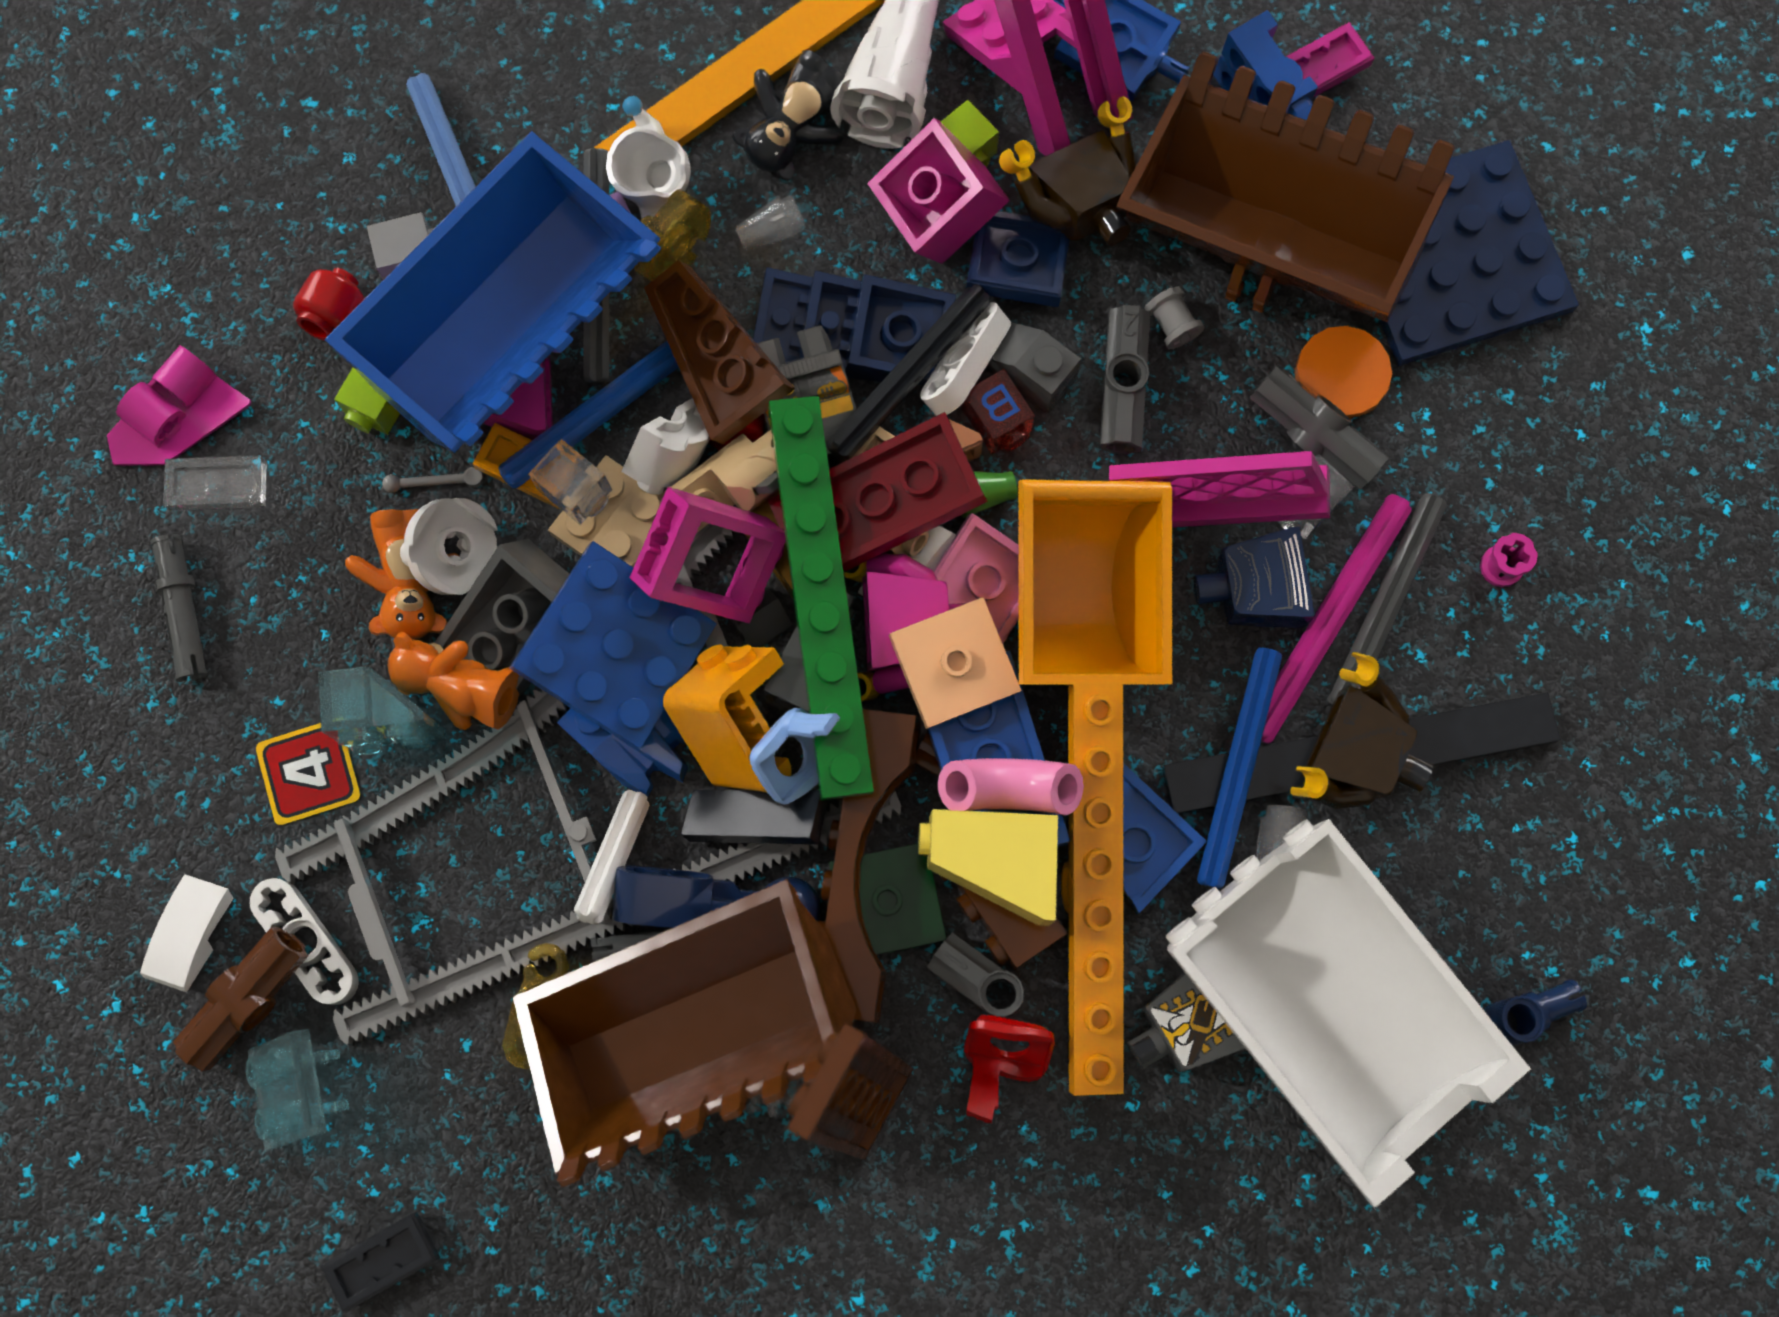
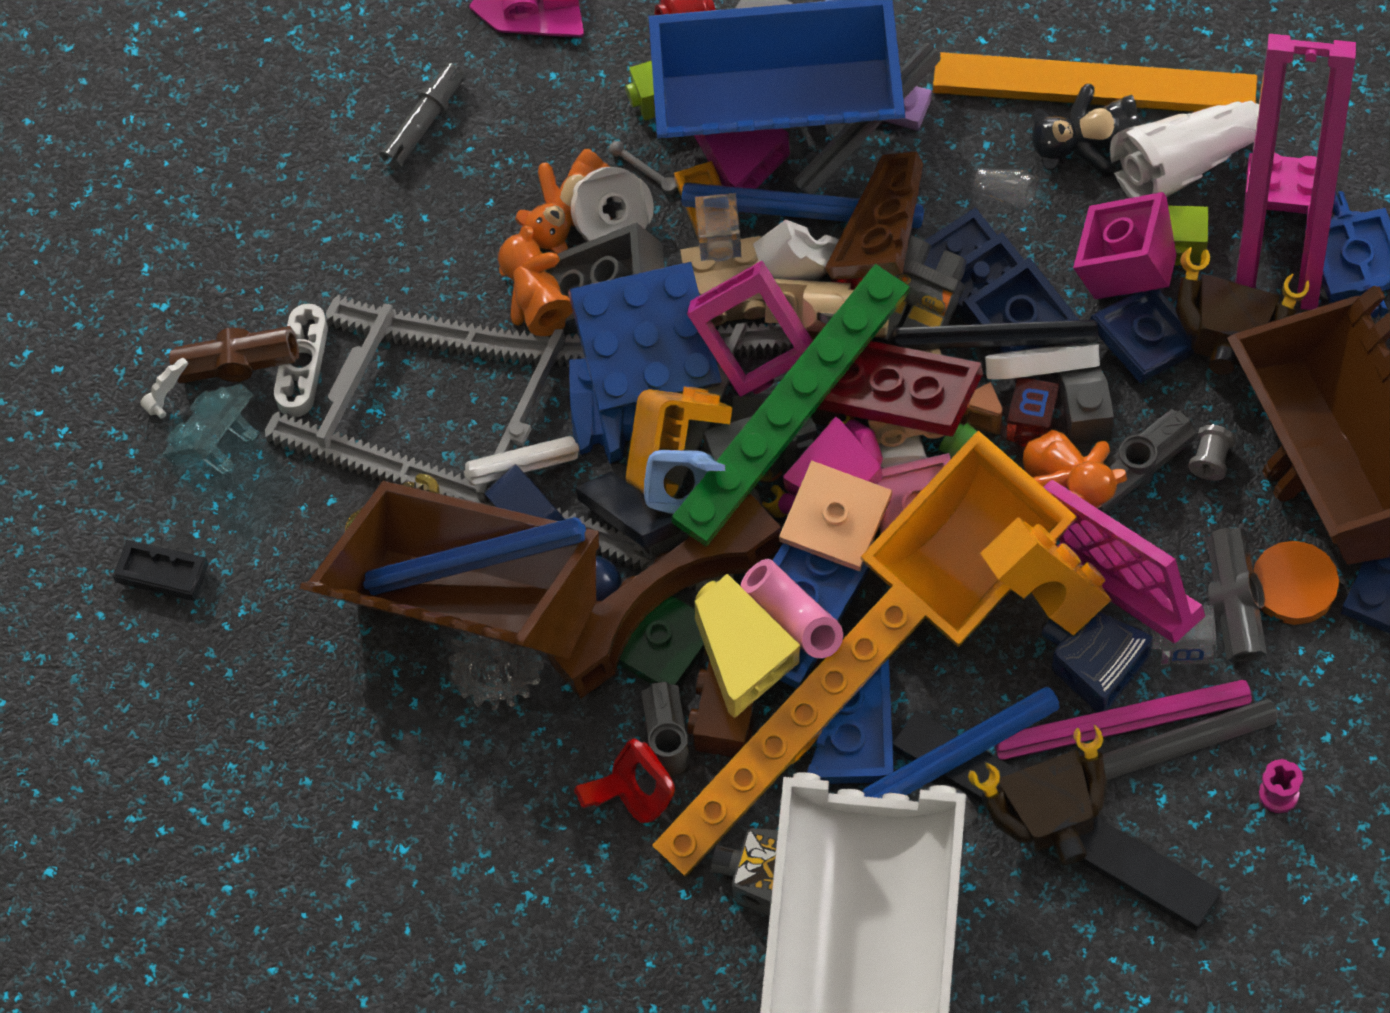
camera: 50 degrees right, 15 degrees down
(183, 932) = (232, 297): white slope -> none
(204, 1106) = (154, 401): none -> white piece
(215, 483) = (515, 63): clear plate -> none
(306, 774) = (401, 270): sticker -> none
(368, 712) = (467, 259): clear light blue slope -> none
(646, 162) = (955, 88): white piece -> none
(678, 227) = (942, 127): clear yellow plate -> none
(682, 995) = (475, 556): none -> blue axle
(849, 1093) = (510, 679): reddish brown plate -> none
(1089, 441) = (1059, 460): none -> orange piece
(1193, 556) = (1032, 563): none -> light orange arch

